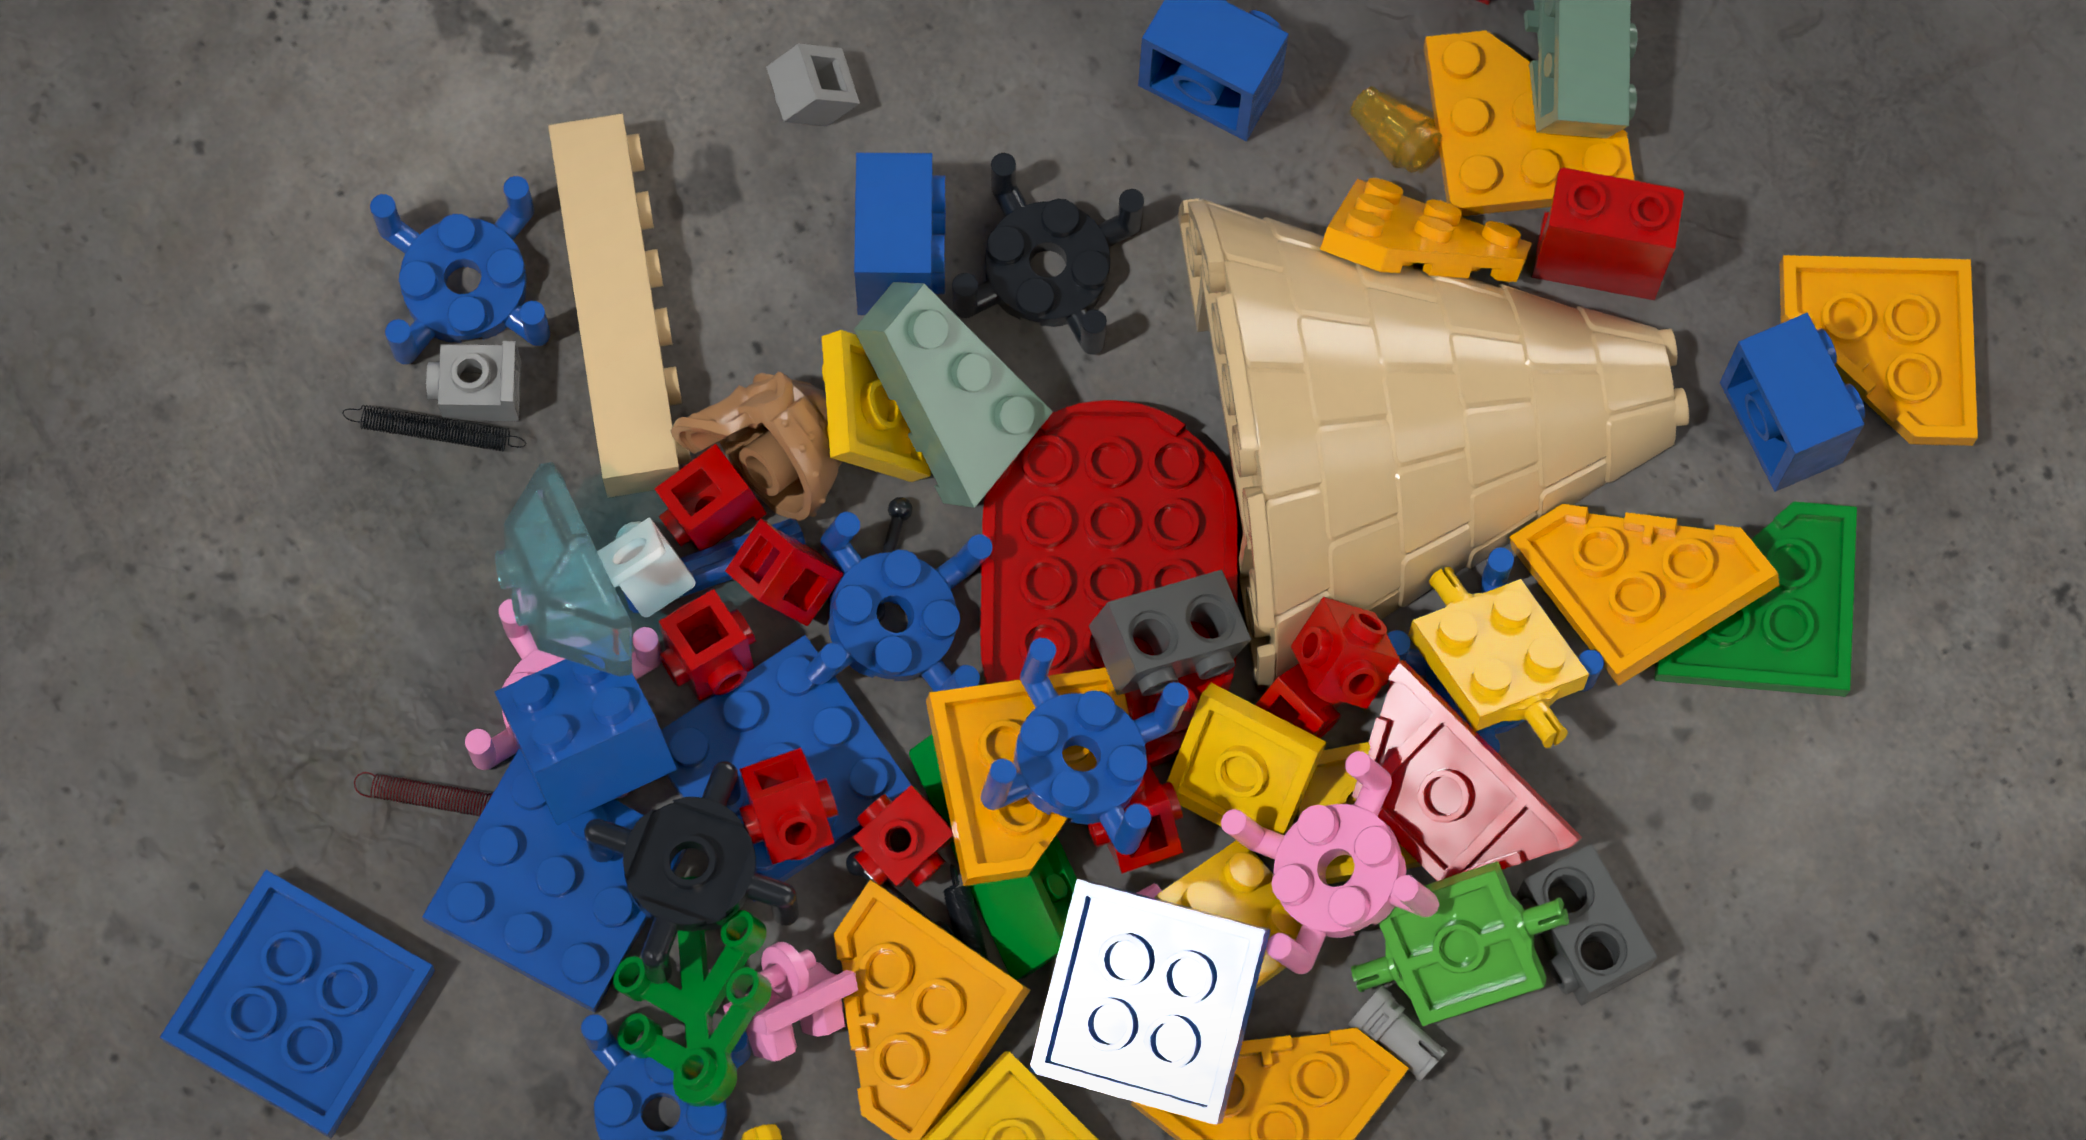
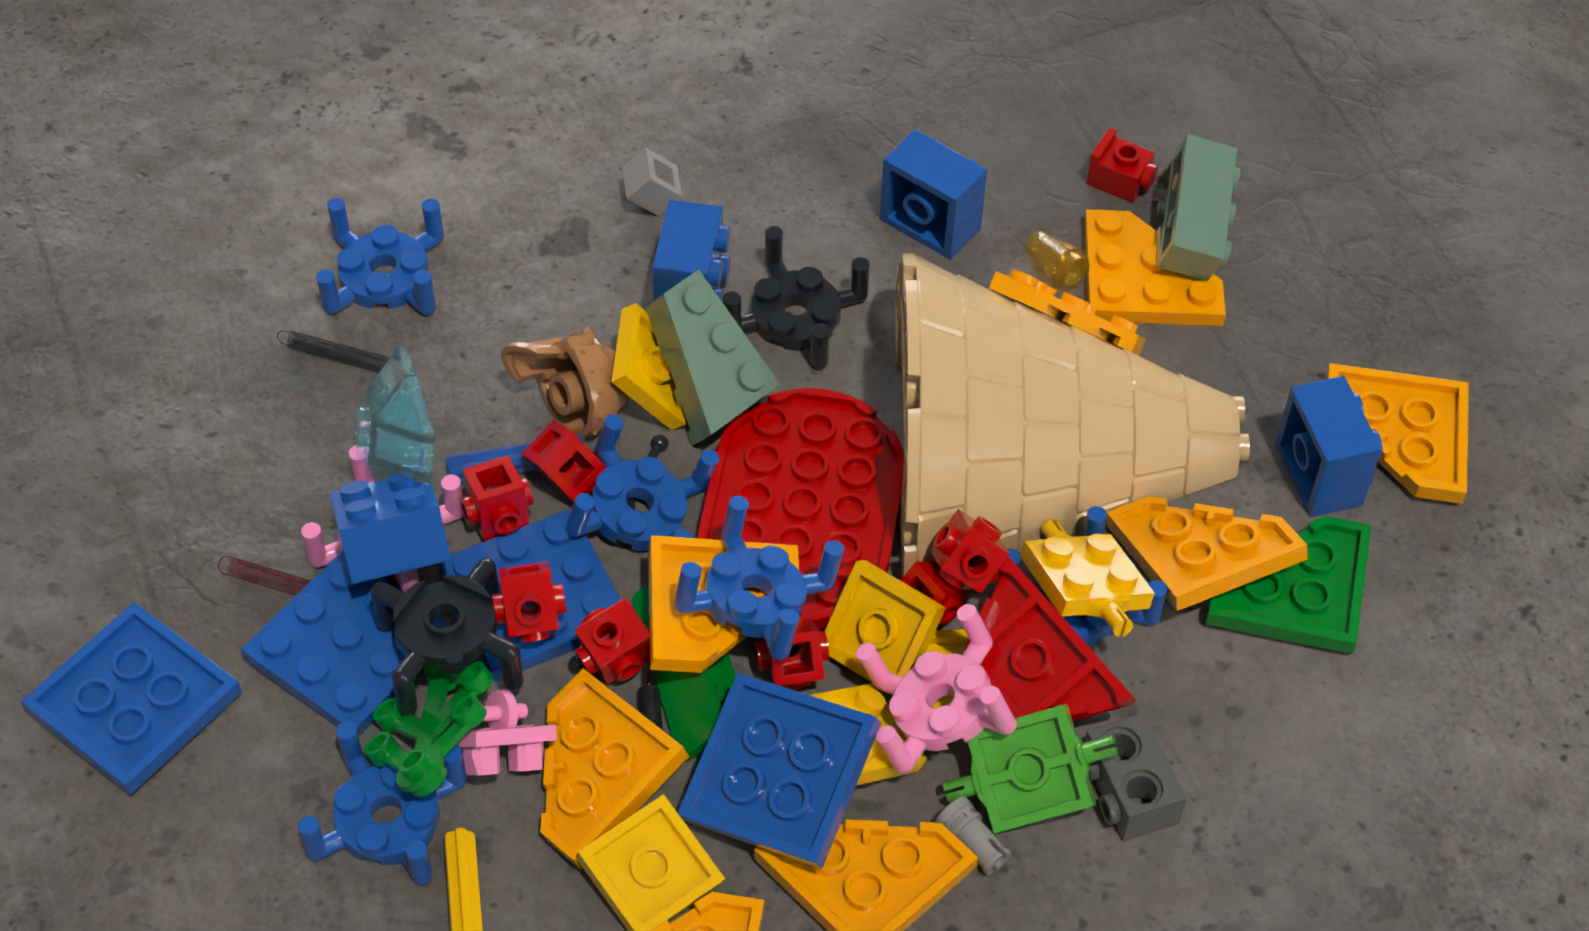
camera: 10 degrees right, 20 degrees down
(489, 398) = (375, 324): light grey brick -> none
(616, 304) = (485, 293): tan brick -> none
(645, 567) = (463, 439): white bracket -> none
(707, 500) = (518, 412): red brick -> none
(1163, 622) = (851, 515): dark grey brick -> none
(1608, 233) = (1201, 323): red panel -> none

